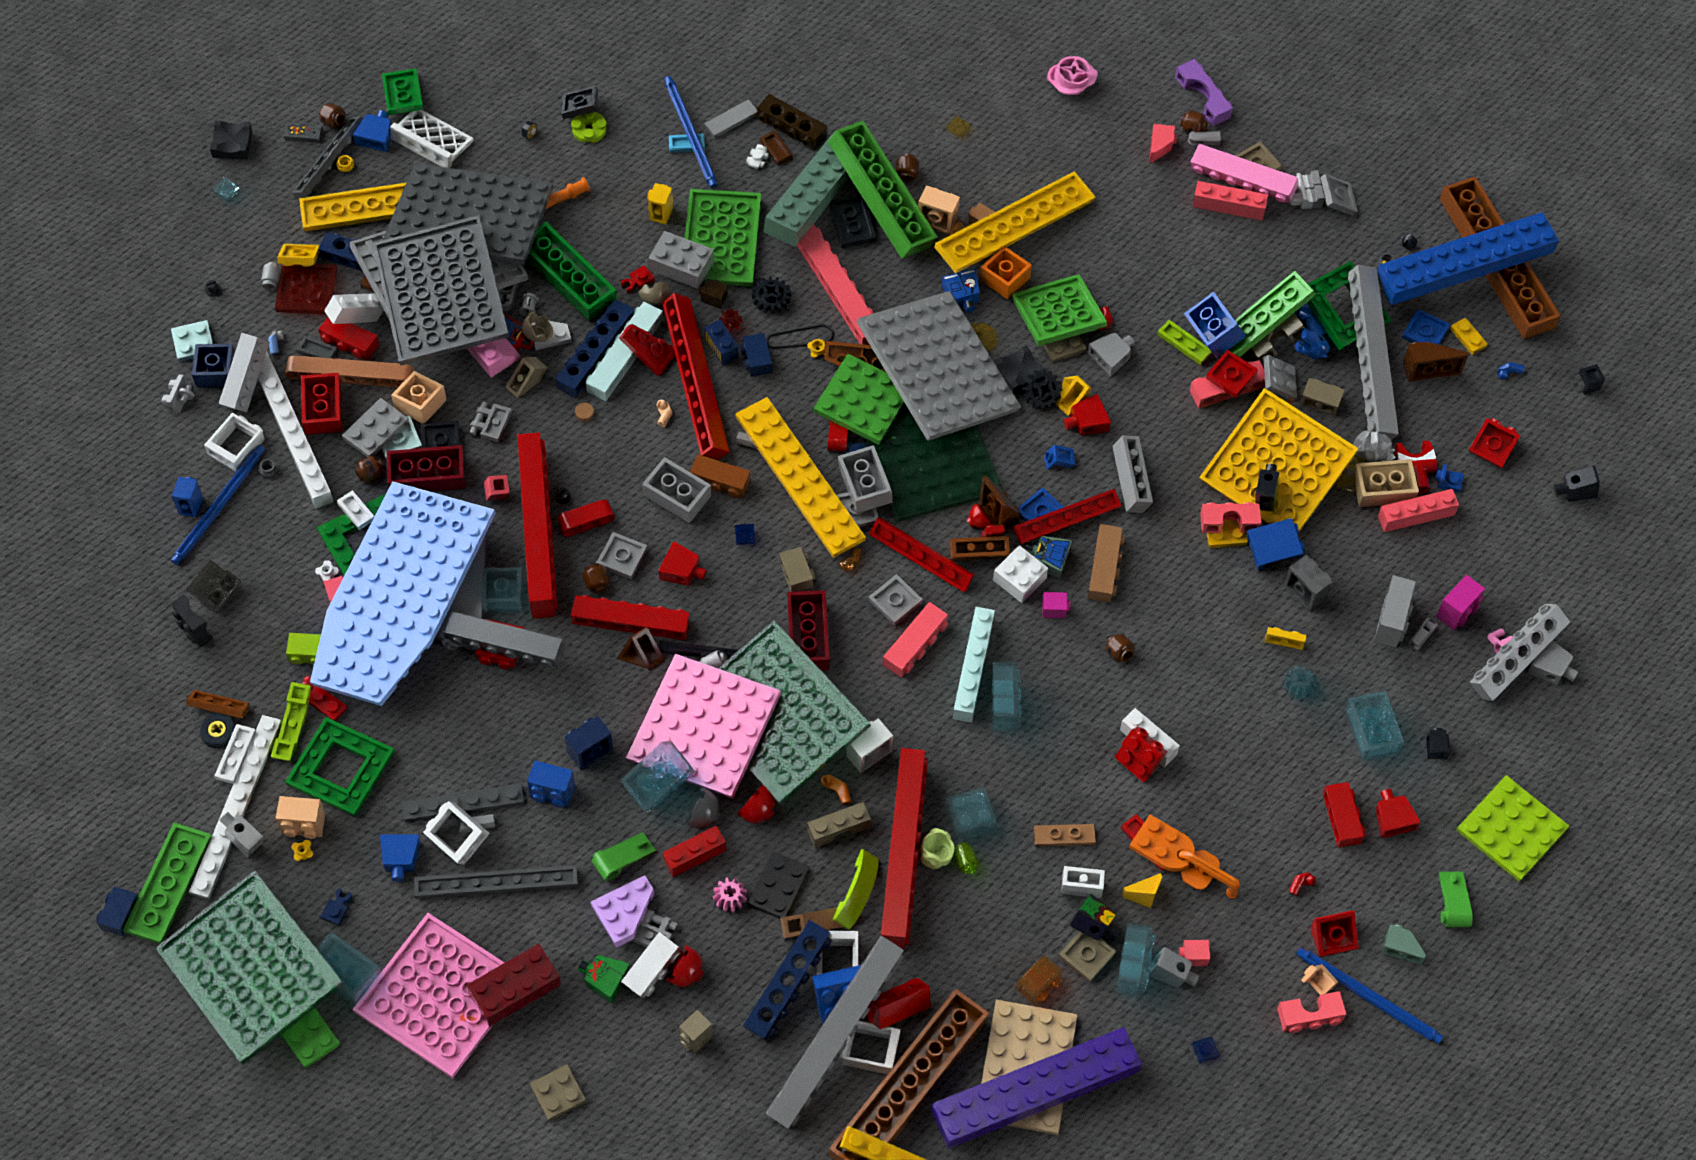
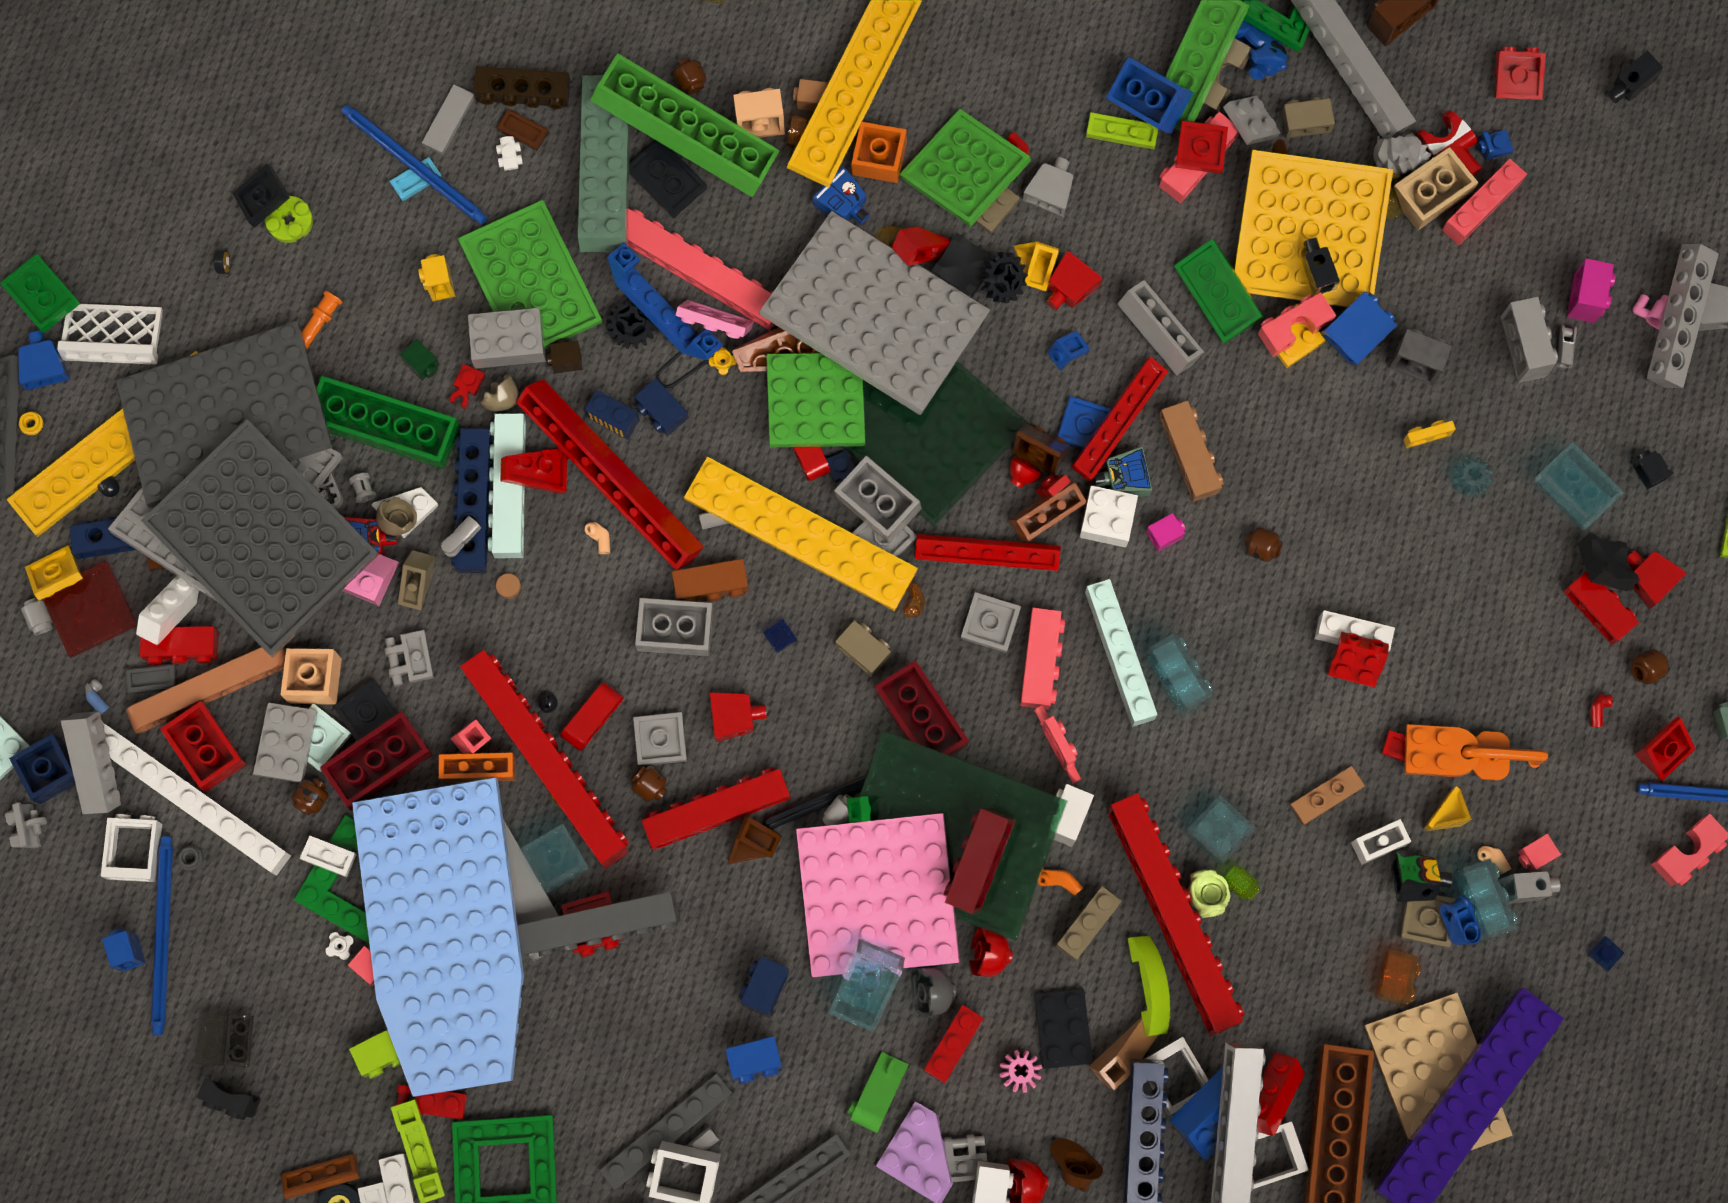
camera: 30 degrees left, 15 degrees up
(368, 224) = (109, 487): none -> black hinge
(506, 513) = (477, 767): none -> orange brick
(570, 361) = (460, 537): none -> light grey bar
(617, 248) = (420, 360): none -> dark green brick
(726, 661) = (858, 809): none -> green plate
(729, 976) = (1076, 1164): none -> reddish brown piece
(731, 319) = (599, 375): clear red gear -> none
(785, 253) = (656, 309): none -> blue slope
(785, 729) = (979, 860): none -> dark red brick
(827, 317) = (714, 319): none -> bright pink plate
(893, 696) = (1063, 750): none -> coral plate
(995, 340) = (919, 245): none -> red slope
(1107, 959) = (1460, 922): none -> blue piece
(1161, 938) = (1496, 857): none -> light nougat arm
(1189, 472) = (1219, 291): none -> green plate
(1319, 978) = (1680, 809): light nougat bracket -> none
(1356, 873) = (1649, 666): none -> reddish brown head
(1364, 784) = (1607, 562): none -> black brick

